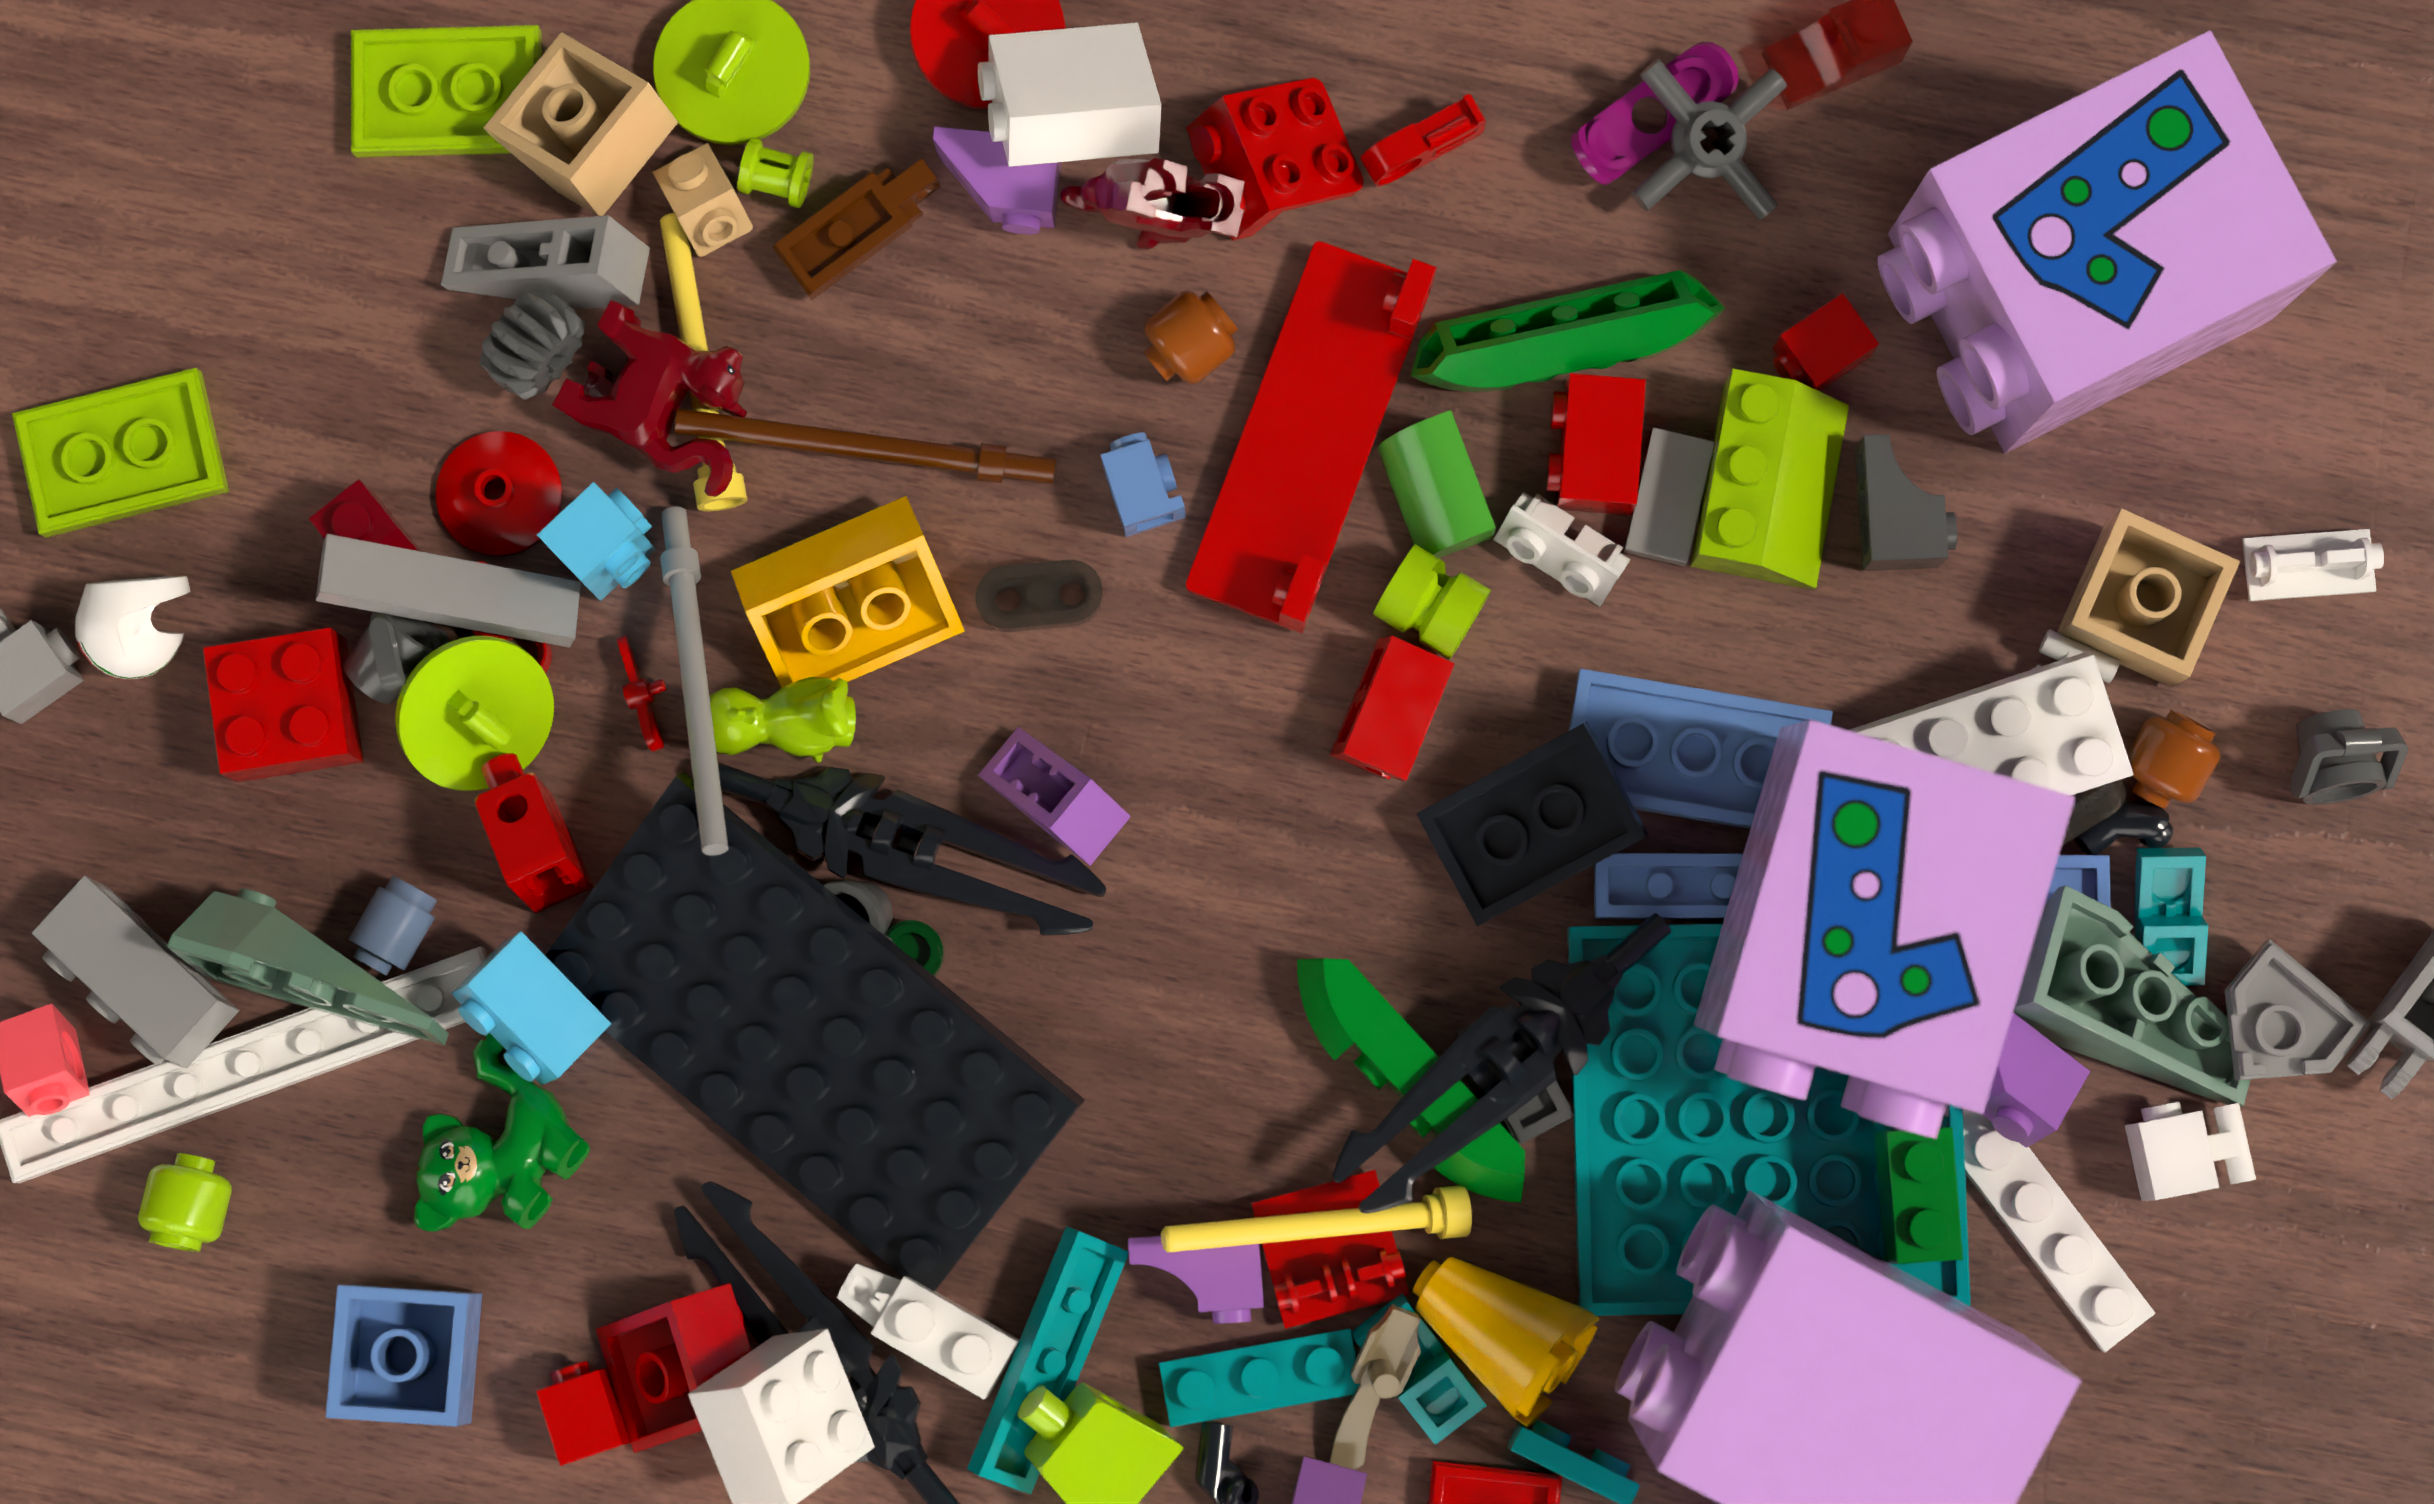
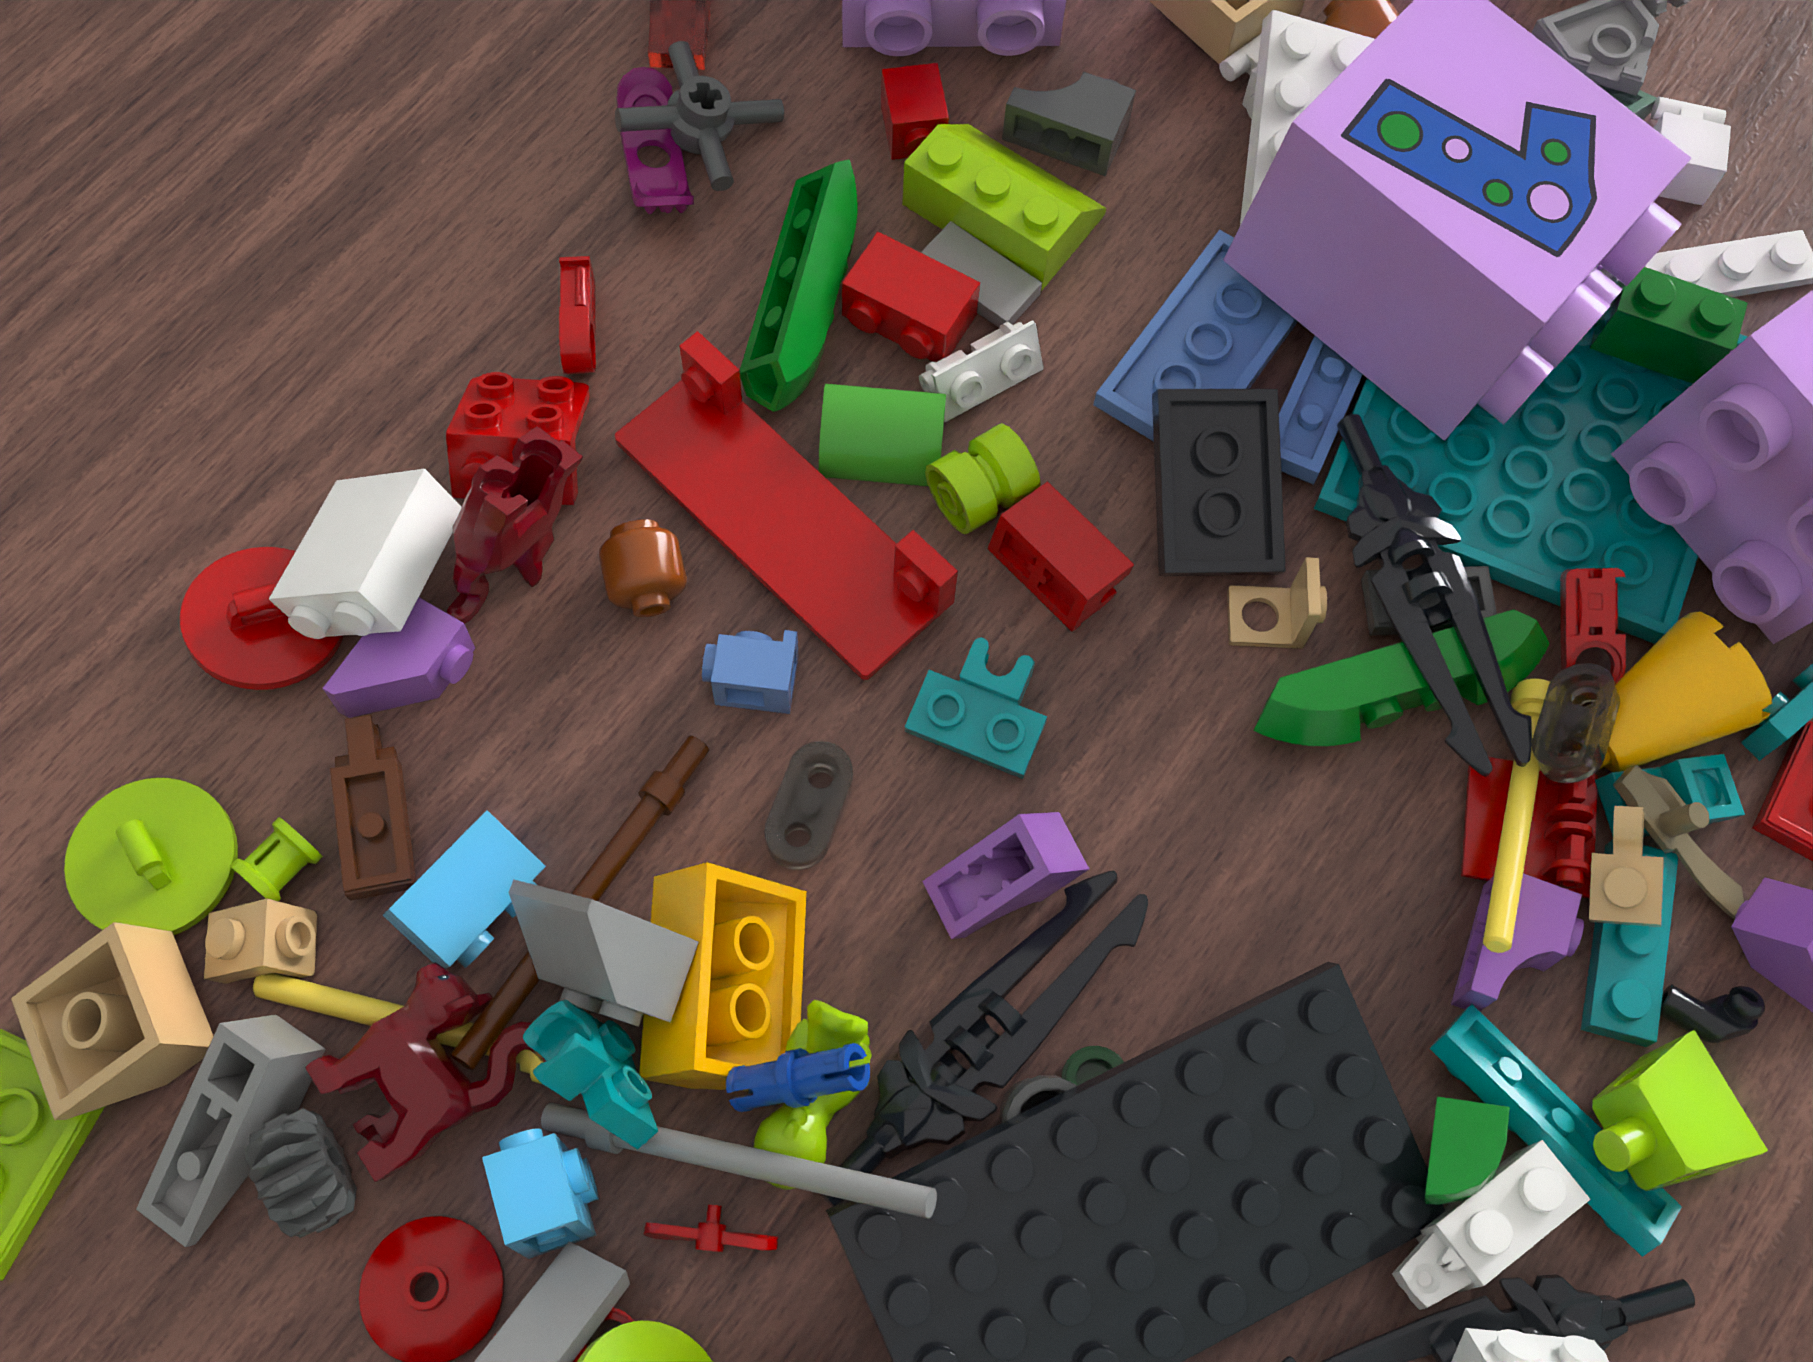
camera: 70 degrees left, 15 degrees down
(719, 528) = (597, 1063): none -> teal plate
(776, 699) = (798, 1078): none -> blue pin
(812, 490) = (602, 954): none -> light grey slope
(817, 347) = (464, 893): none -> medium azure brick
(980, 1278) = (1464, 1148): none -> green brick
(1201, 706) = (980, 713): none -> teal plate
(1296, 1342) = (1626, 884): none -> tan plate
(1424, 1244) = (1573, 729): none -> clear smoke plate
(1441, 956) = (1296, 610): none -> tan bracket
(1555, 1231) = (1591, 616): none -> red piece

